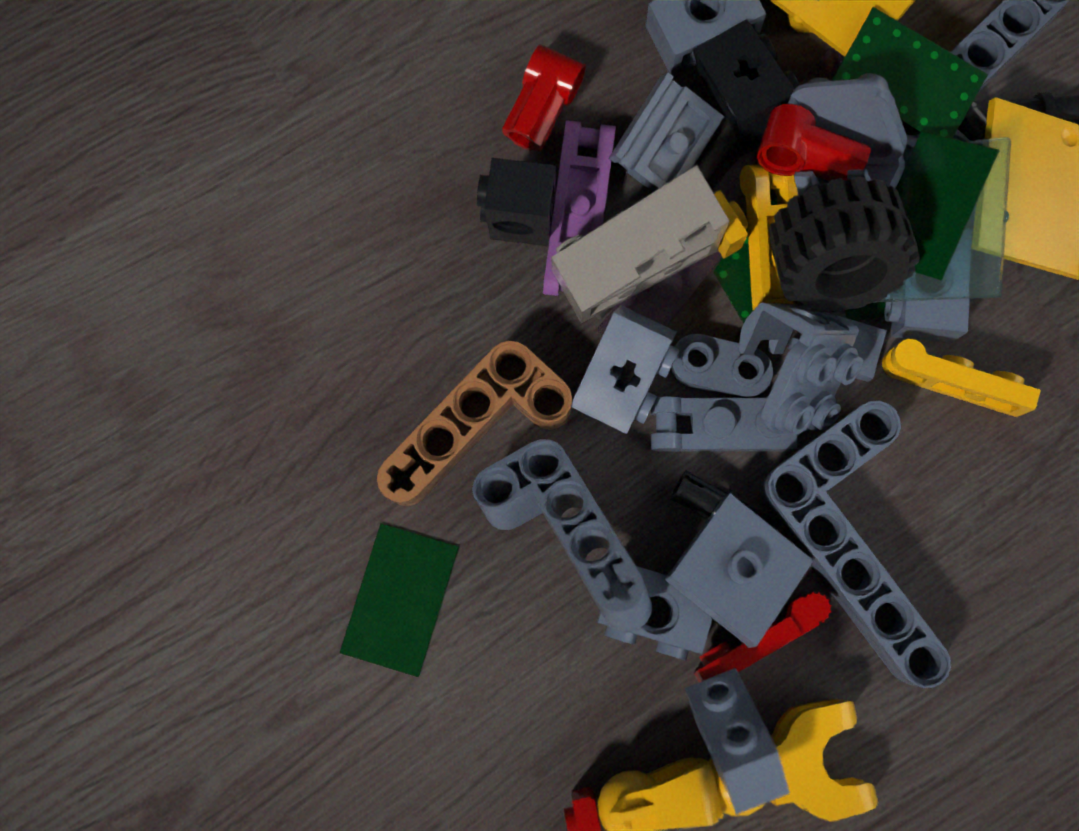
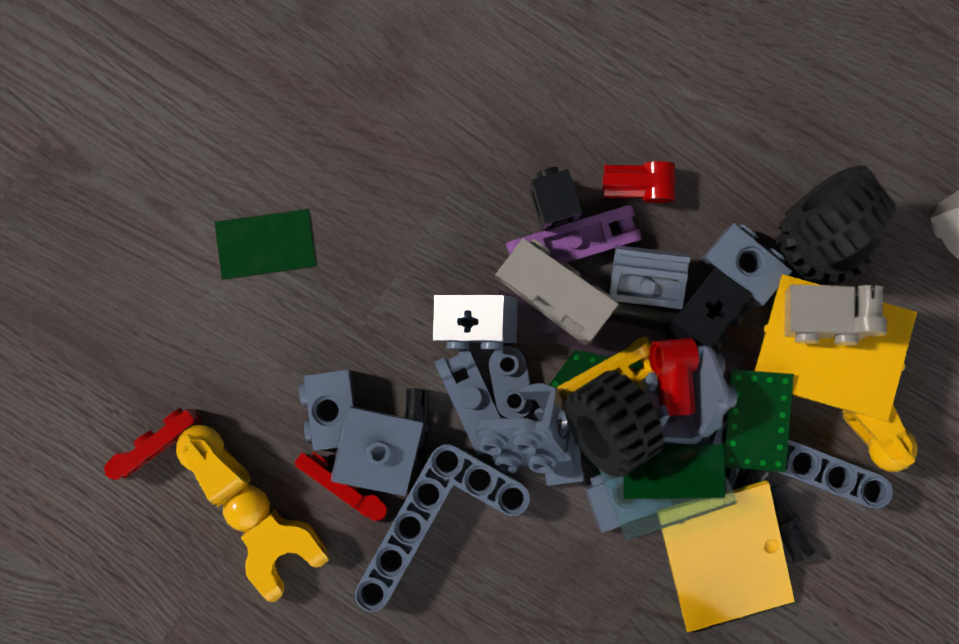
camera: 60 degrees right, 5 degrees up
(467, 430) = (390, 236): medium nougat beam -> none
(577, 534) = (350, 336): sand blue beam -> none
(736, 230) = (602, 342): yellow plate -> none
(737, 741) = (266, 493): sand blue brick -> none
(958, 379) = (571, 540): yellow plate -> none

